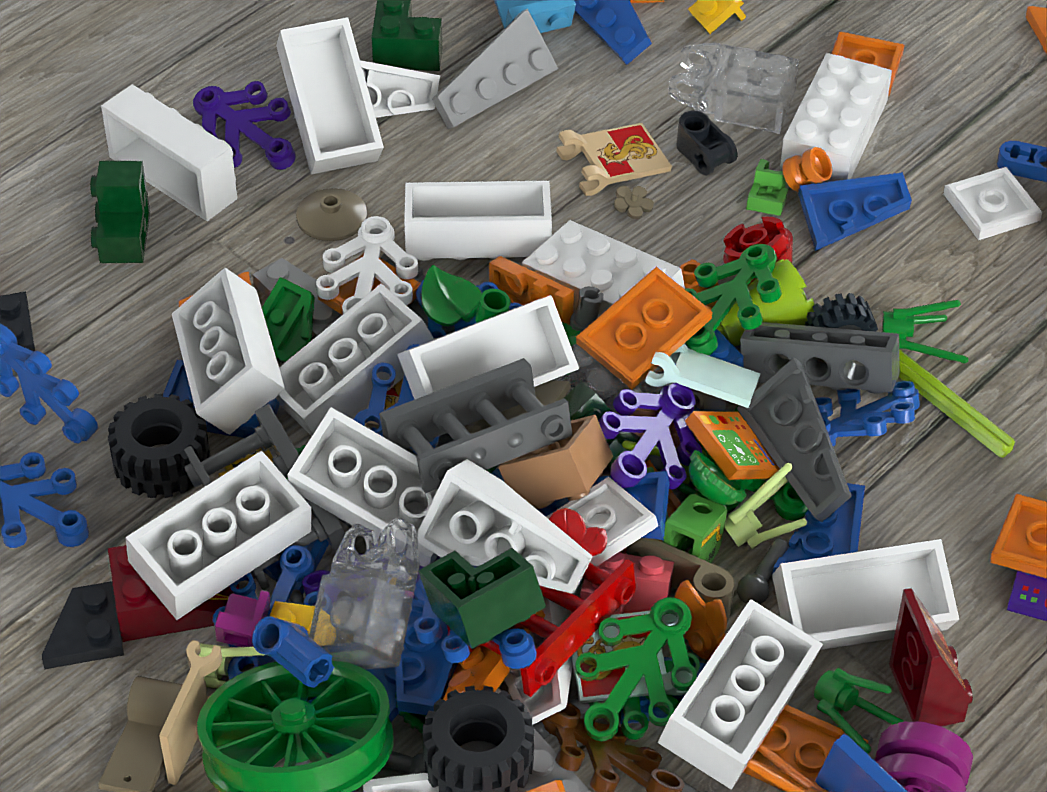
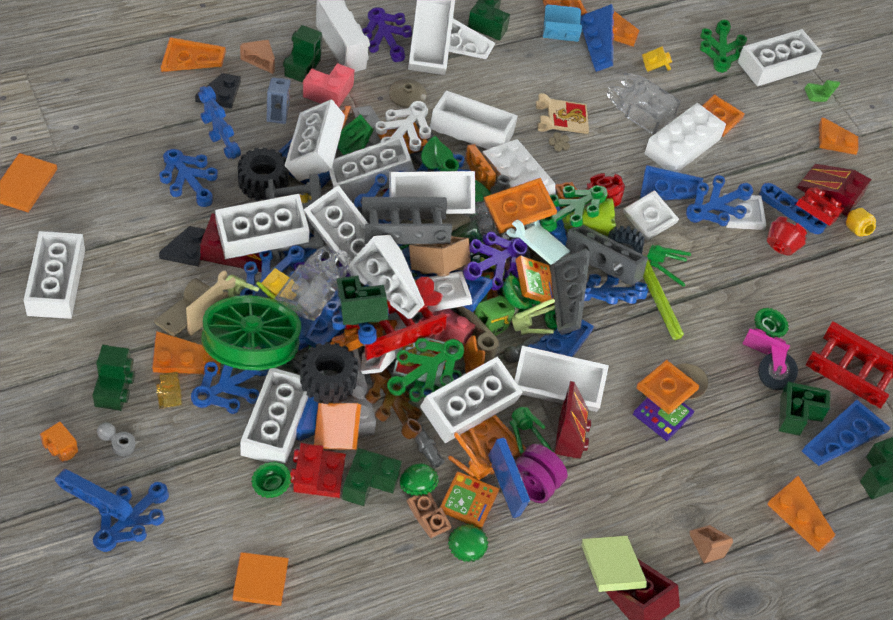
camera: 15 degrees right, 5 degrees up
(40, 242) = (258, 54): none -> nougat slope
(115, 294) = (278, 93): none -> sand blue torso
(193, 255) = (324, 87): none -> coral brick
(240, 617) = (256, 271): magenta panel -> none
(293, 649) = (268, 293): blue piece -> none
(501, 69) = (527, 51): light grey wing -> none
(704, 142) = (610, 125): black piece -> none
(768, 190) = (631, 162): bright green slope -> none
(810, 167) = (655, 158): orange wheel -> none
(850, 264) = (650, 215): none -> white tile
(978, 171) = (718, 203): none -> blue plant

